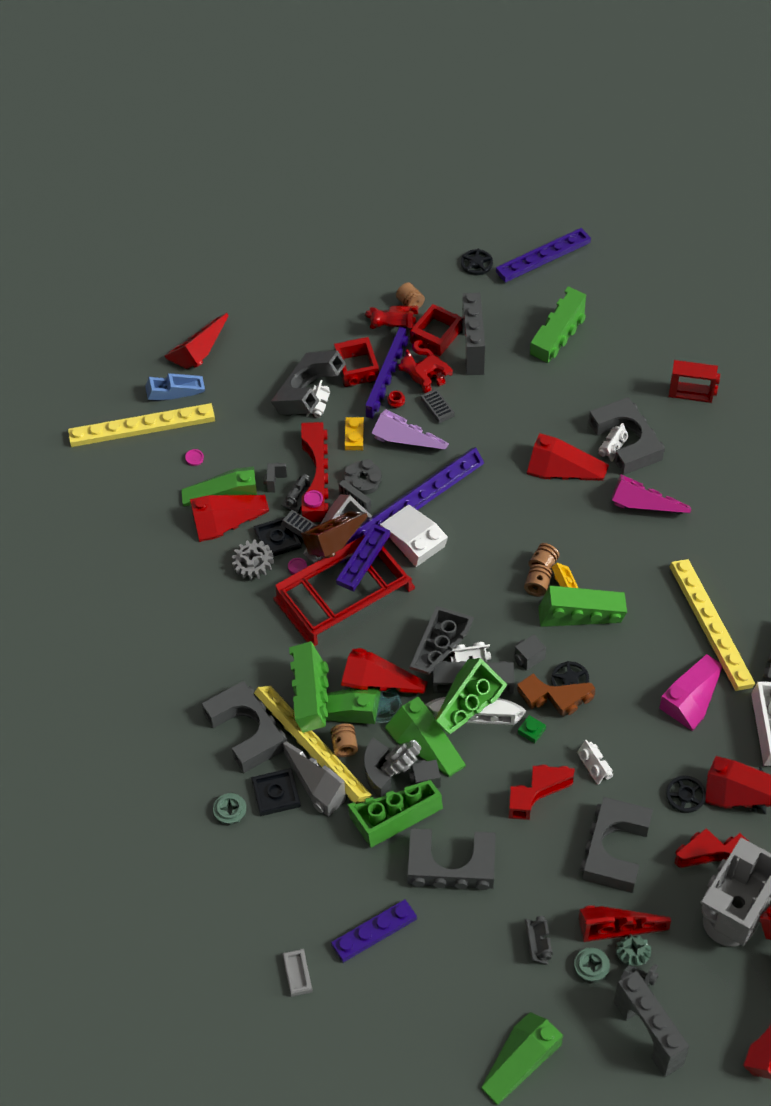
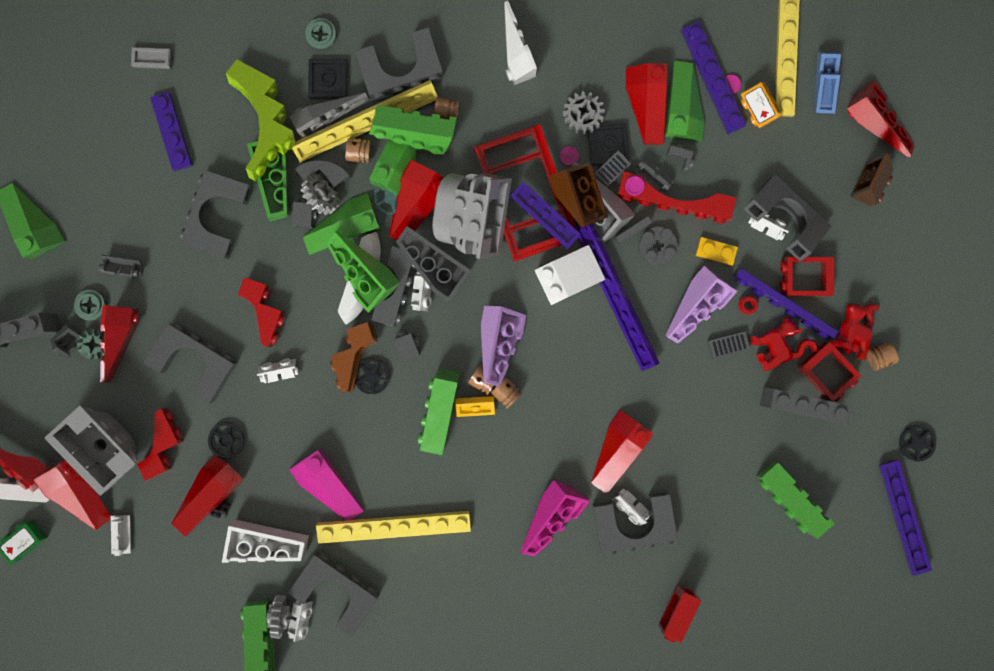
camera: 105 degrees right, 35 degrees up
(191, 471) = (713, 77): none -> dark purple plate
(209, 426) = (761, 105): none -> brick
(209, 624) = (519, 58): none -> white wedge
(257, 331) = (873, 180): none -> reddish brown slope
(280, 672) = (447, 108): none -> medium nougat piece
(309, 842) = (272, 134): none -> lime arch
(379, 613) = (472, 212): none -> light grey brick
(483, 577) = (499, 336): none -> lavender wedge
(531, 729) = (328, 325): green plate -> none

